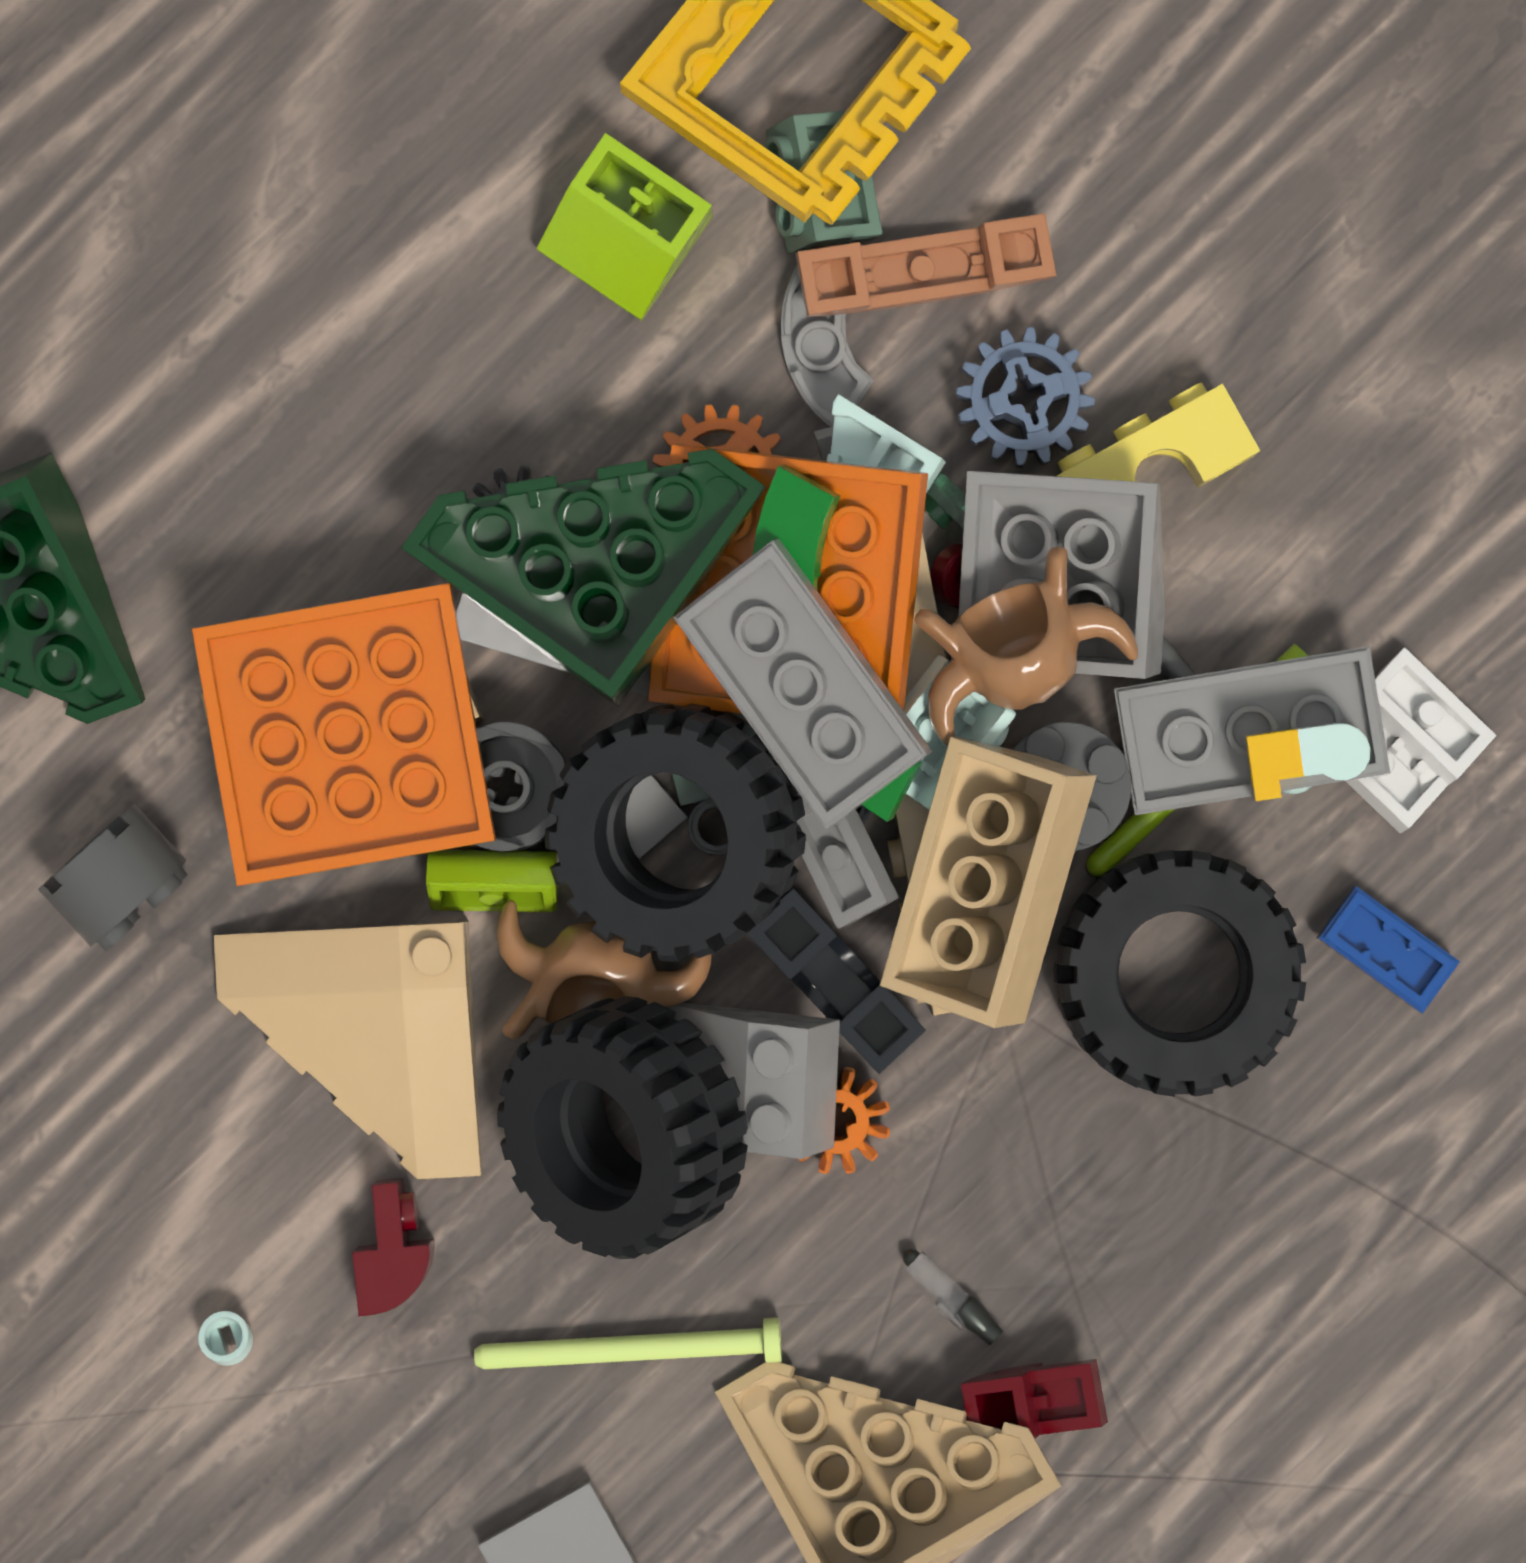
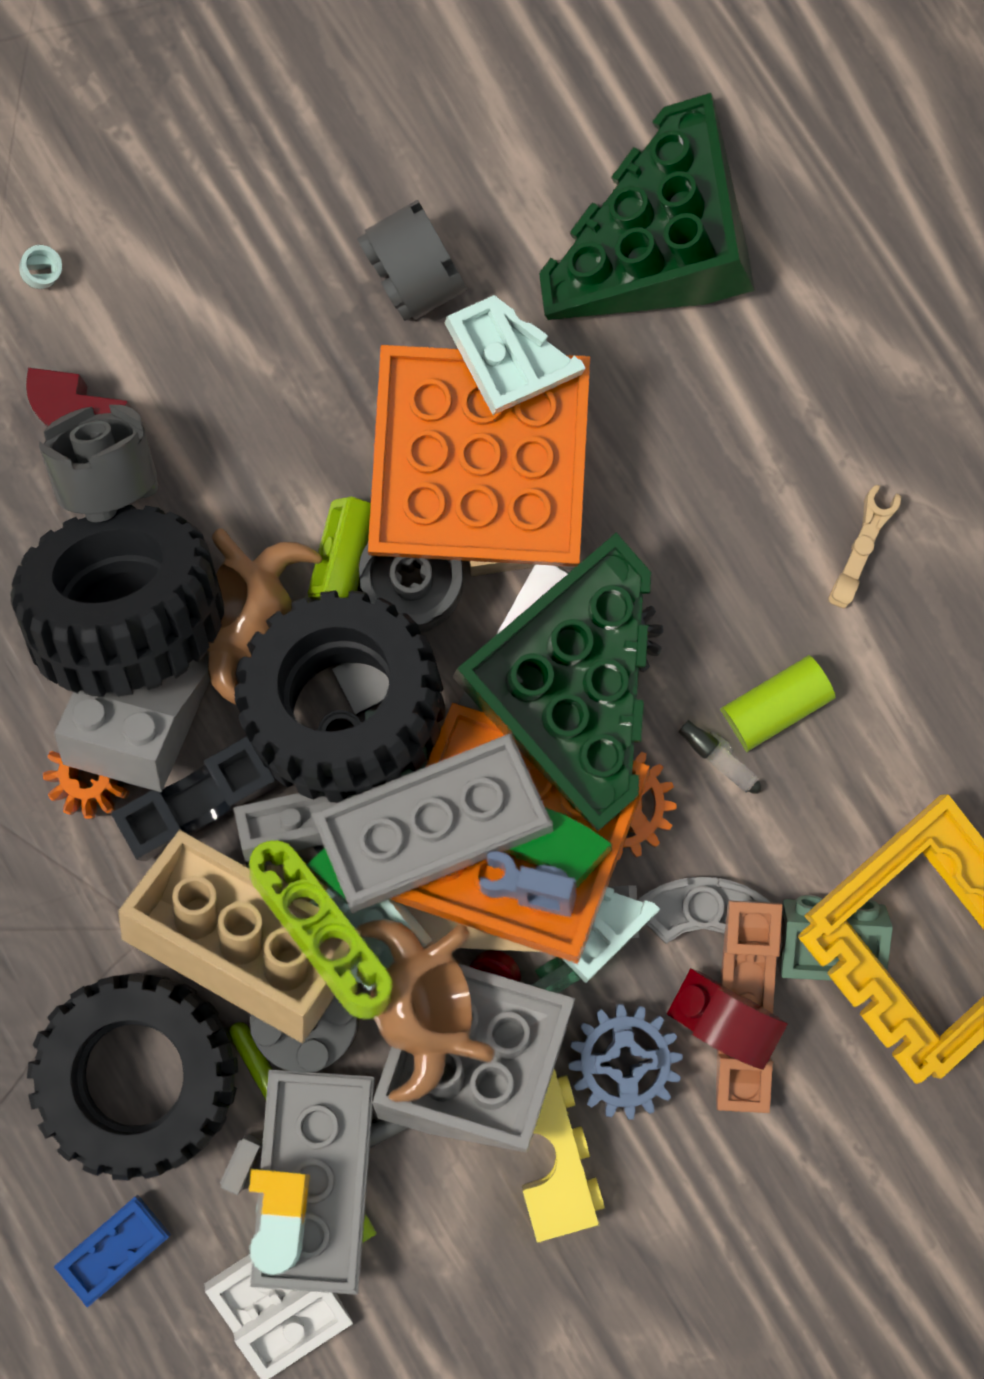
camera: 100 degrees right, 5 degrees down
(215, 727) = (507, 354): none -> light aqua wing
(375, 1022) = (262, 434): tan slope -> none
(387, 260) = (873, 521): none -> tan piece
(456, 1196) = (99, 461): none -> dark grey brick
(553, 311) = (778, 702): none -> lime brick
(624, 227) = (832, 773): lime slope -> none
(630, 368) = (719, 753): none -> piece
(852, 536) = (540, 889): none -> sand blue plate
(948, 288) = (726, 1020): none -> dark red brick
(963, 790) = (325, 924): none -> lime beam
(1251, 821) = (241, 1164): none -> light grey tile

